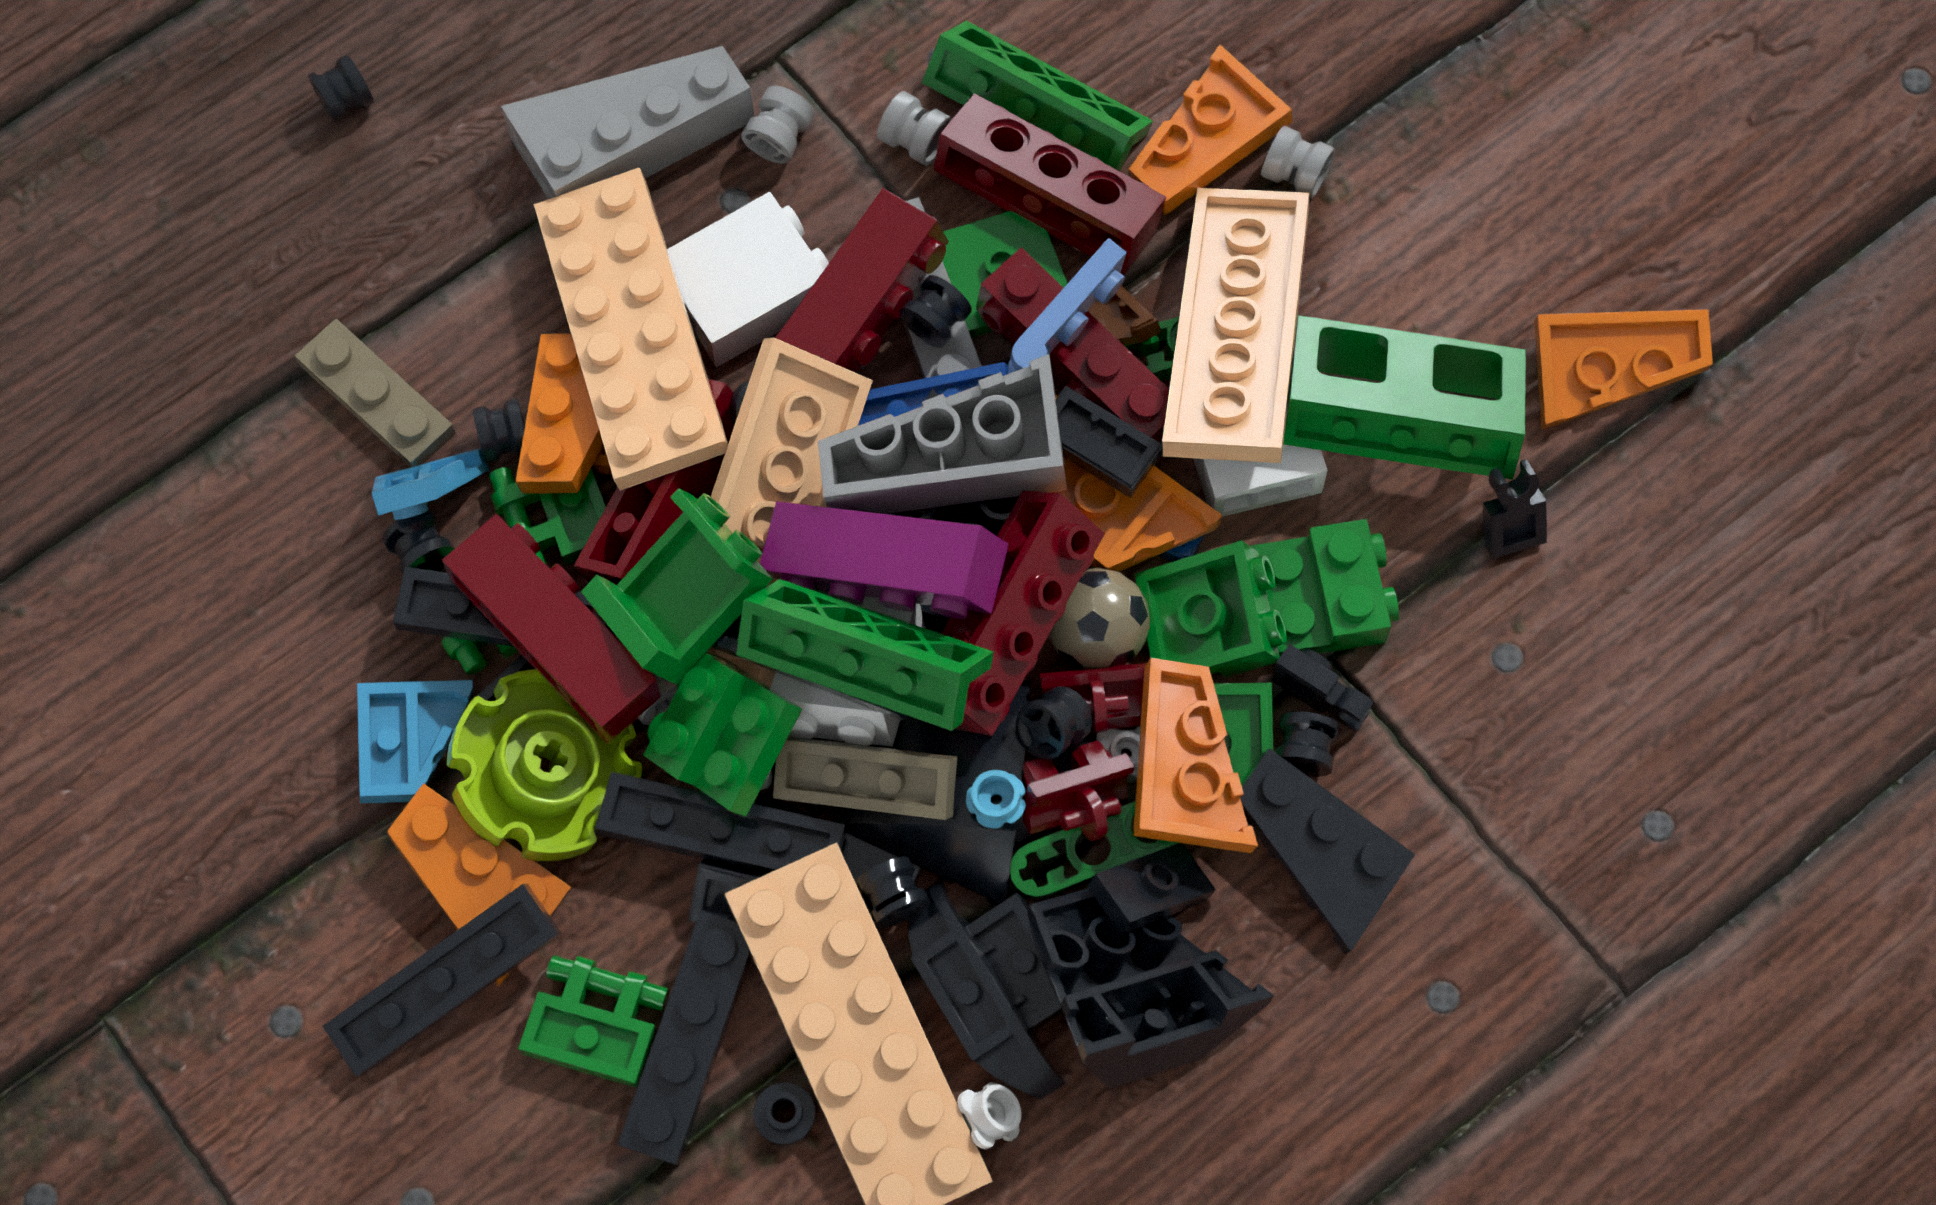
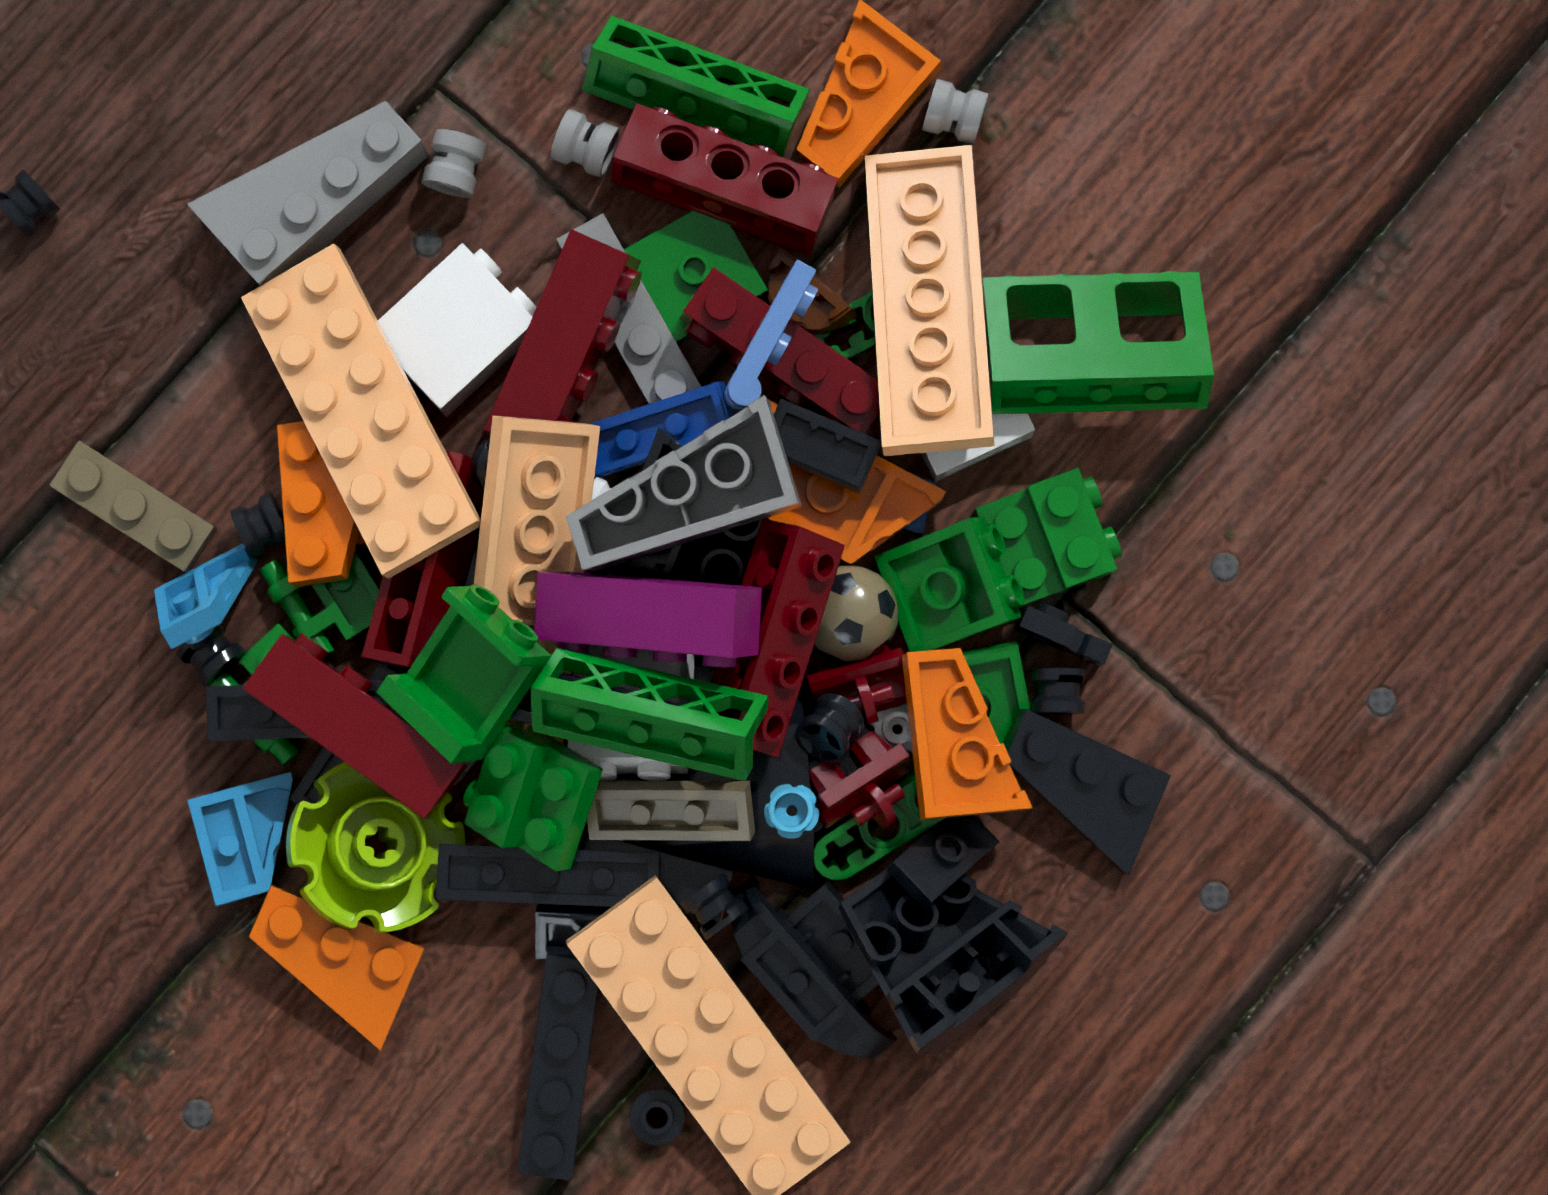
camera: 10 degrees left, 15 degrees up
(442, 980) = (330, 1060): black plate -> none
(591, 1038) = (468, 1082): green plate -> none
(935, 311) = (643, 338): black wheel -> none
(990, 1114) = (848, 1079): white plate -> none
(1518, 514) = (1212, 436): black plate -> none
(1614, 356) = (1277, 257): orange wing -> none

